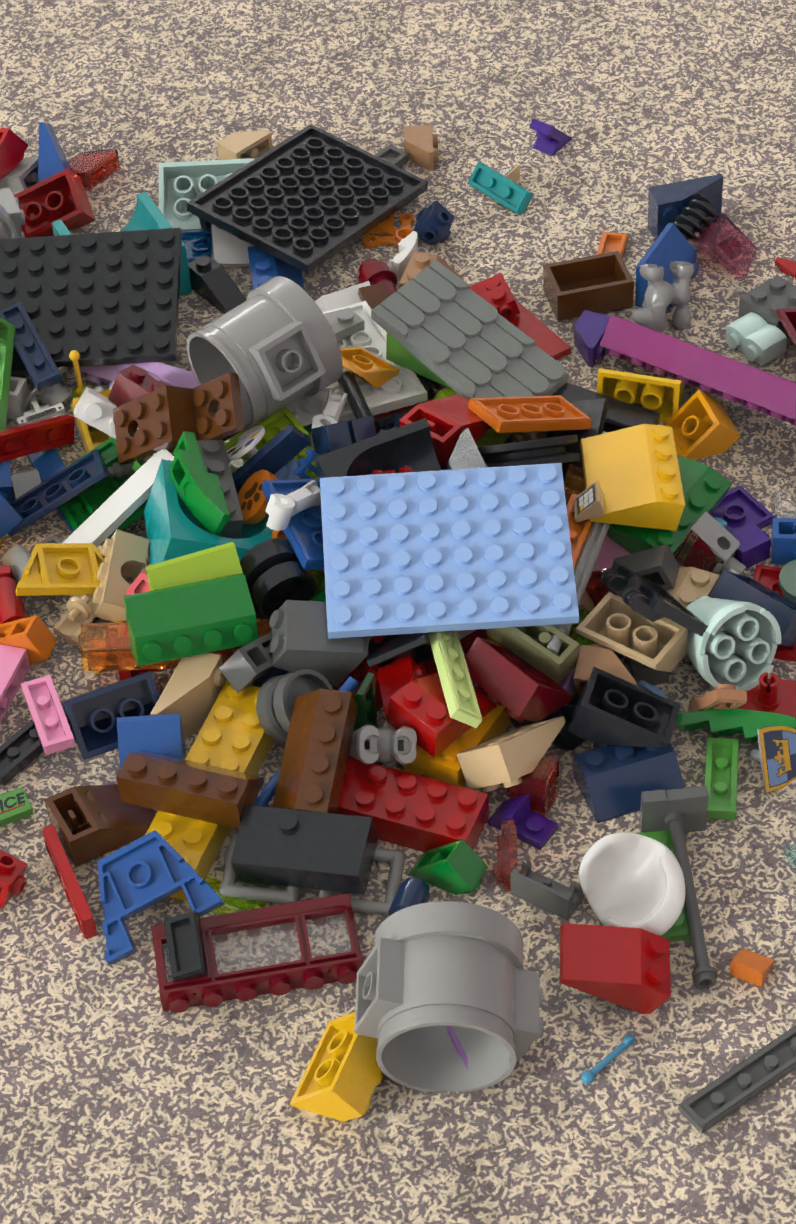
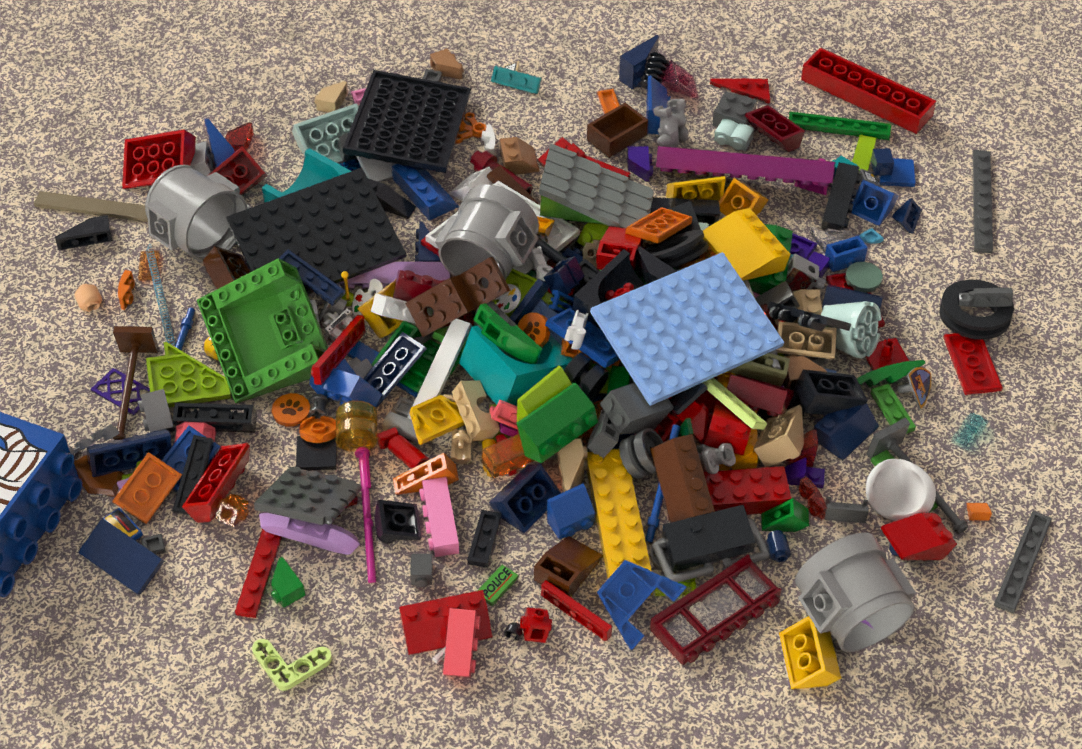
camera: 30 degrees left, 5 degrees up
(48, 715) = (491, 513): bright pink plate -> none
(186, 946) = (681, 622): black tile -> none
(187, 788) = (620, 527): reddish brown slope -> none
(434, 223) = (493, 115): dark blue brick -> none
(548, 137) = (522, 37): dark purple slope -> none
(589, 503) = (740, 267): tan slope -> none
(589, 1075) = (937, 607): dark azure hinge -> none
(723, 697) = (869, 365): nougat hinge -> none

